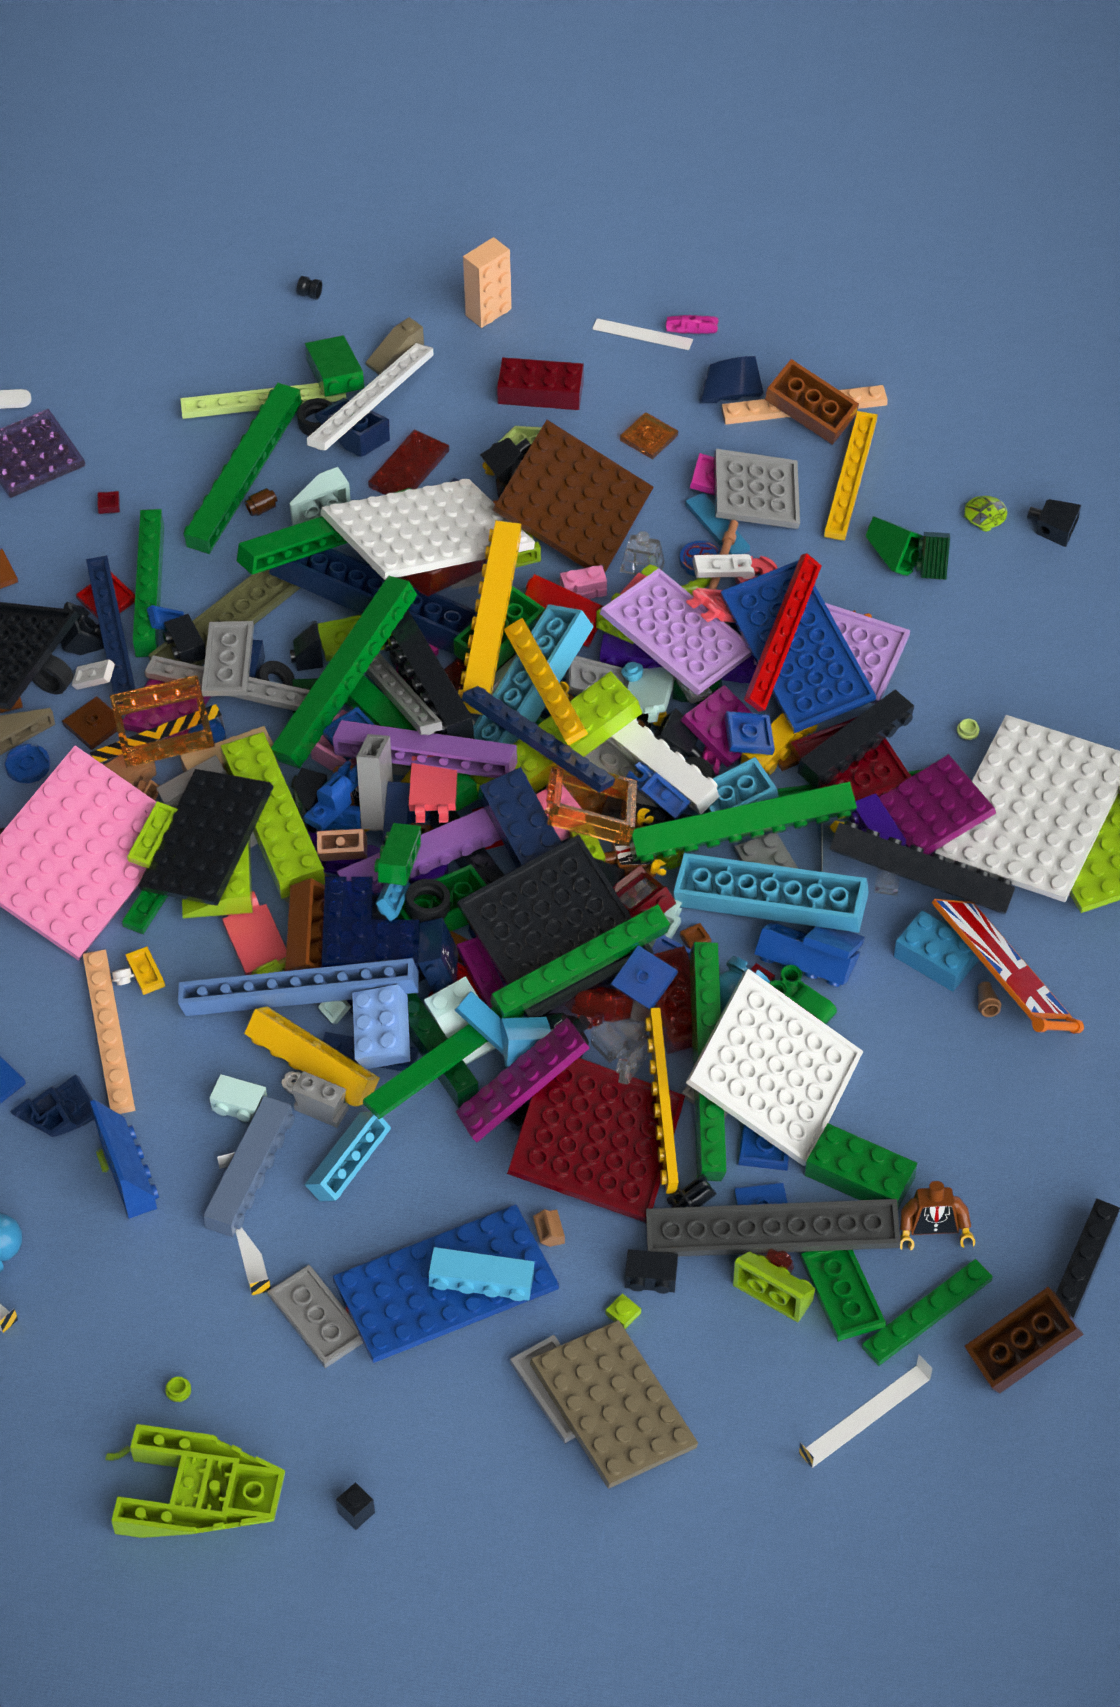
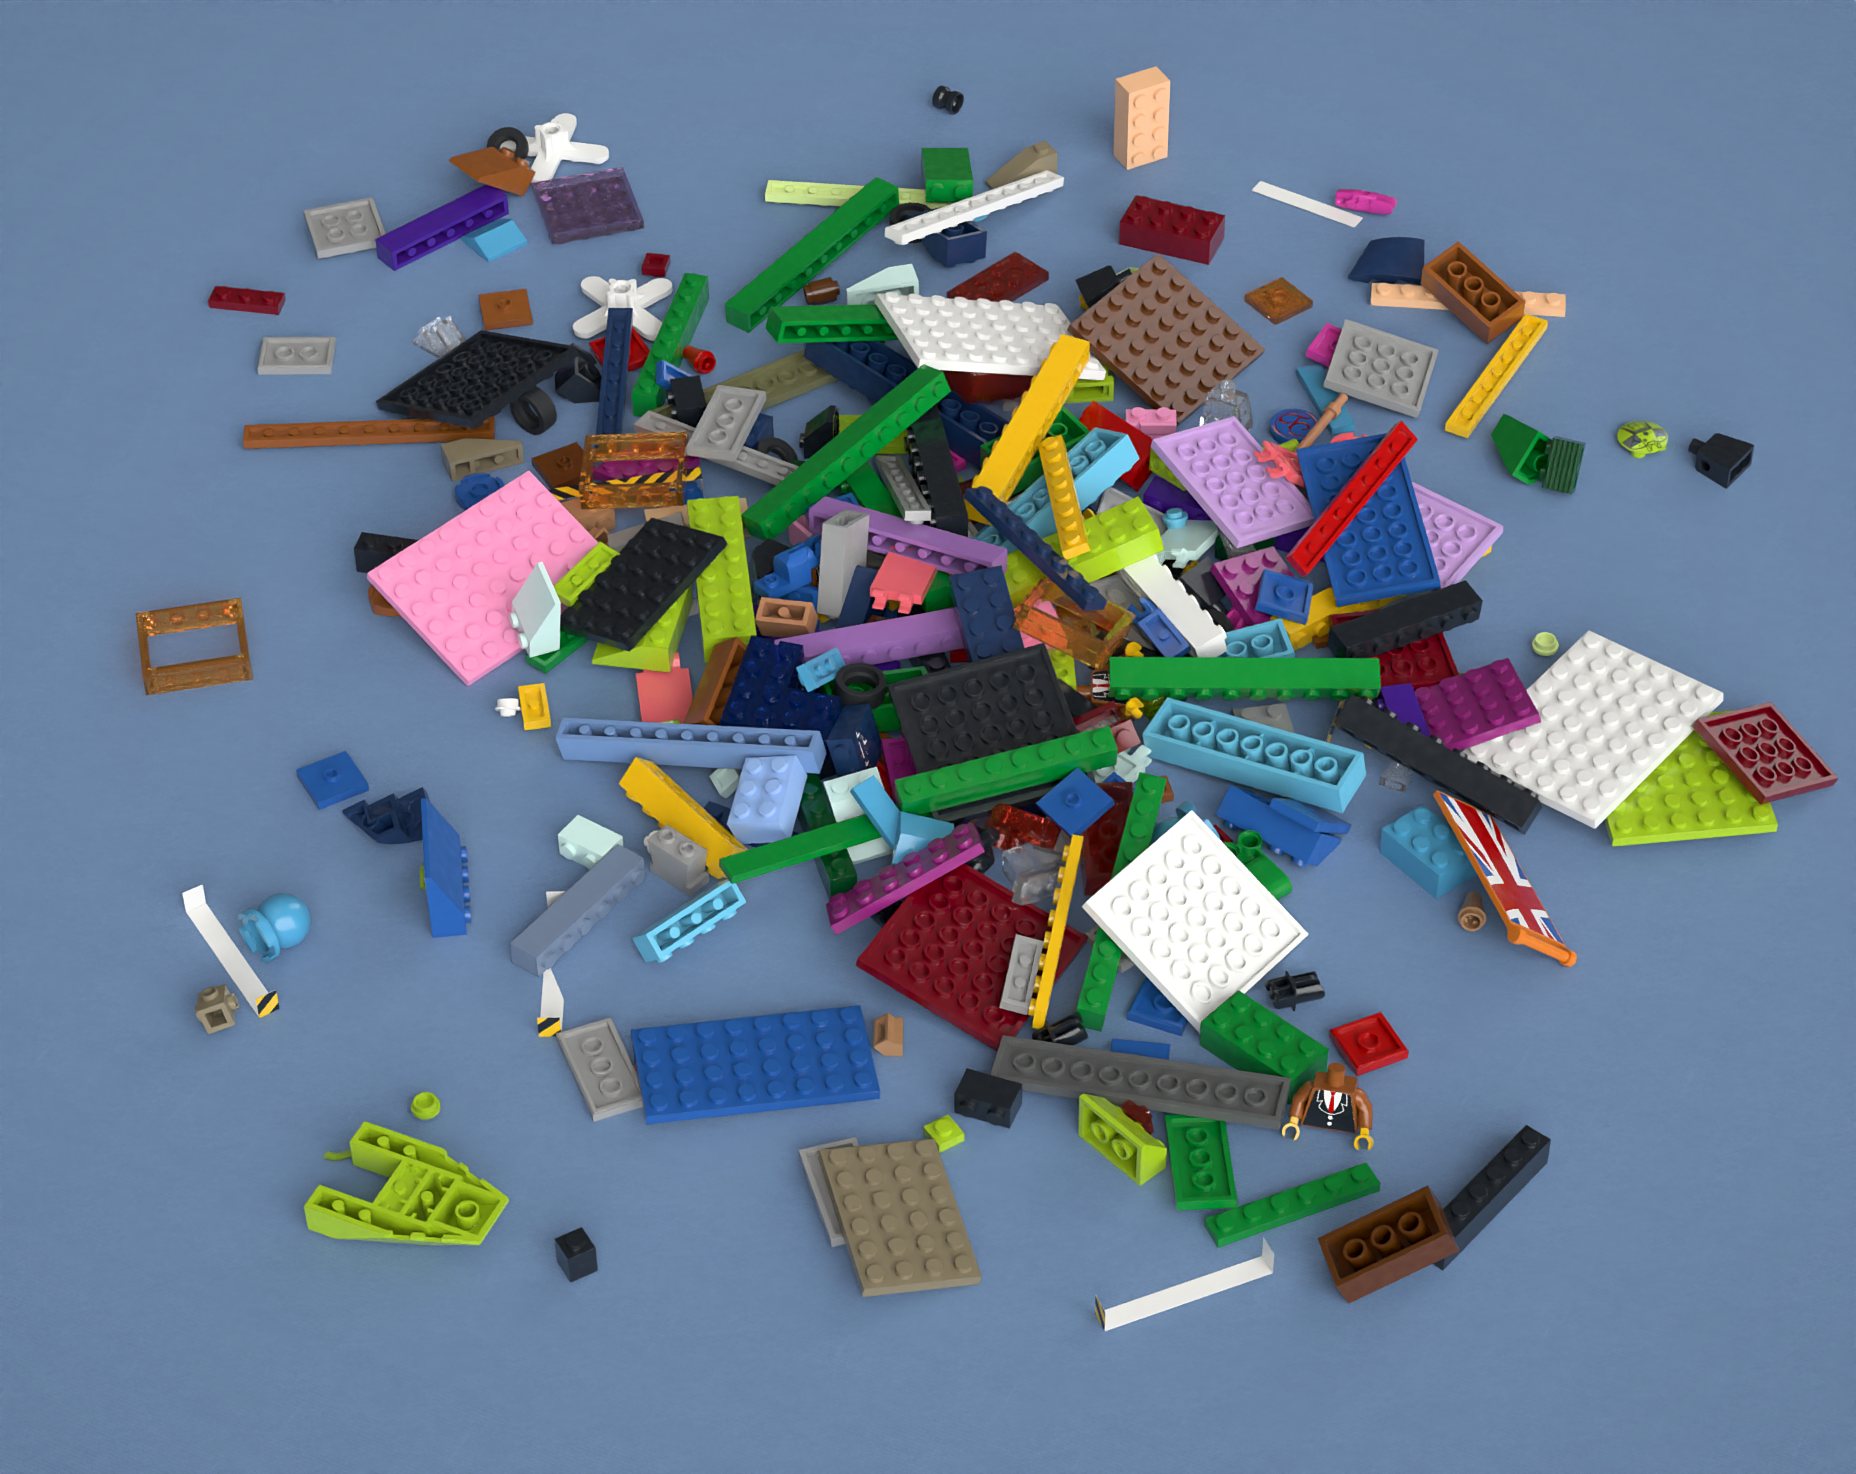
camera: 15 degrees right, 10 degrees down
(92, 544) = (622, 295): none -> white piece
(93, 674) = (579, 419): white plate -> none
(108, 1032) = (475, 757): light nougat plate -> none
(126, 886) = (537, 614): none -> light aqua slope
(177, 591) = (701, 360): none -> red cone
(398, 854) = (840, 629): green brick -> none
(481, 1274) = (792, 1055): medium azure brick -> none
(645, 1148) = (1021, 974): none -> light grey plate
(723, 566) = (1311, 431): white plate -> none
(869, 1106) = (1294, 989): none -> black arm
(943, 1145) = (1368, 1043): none -> red plate

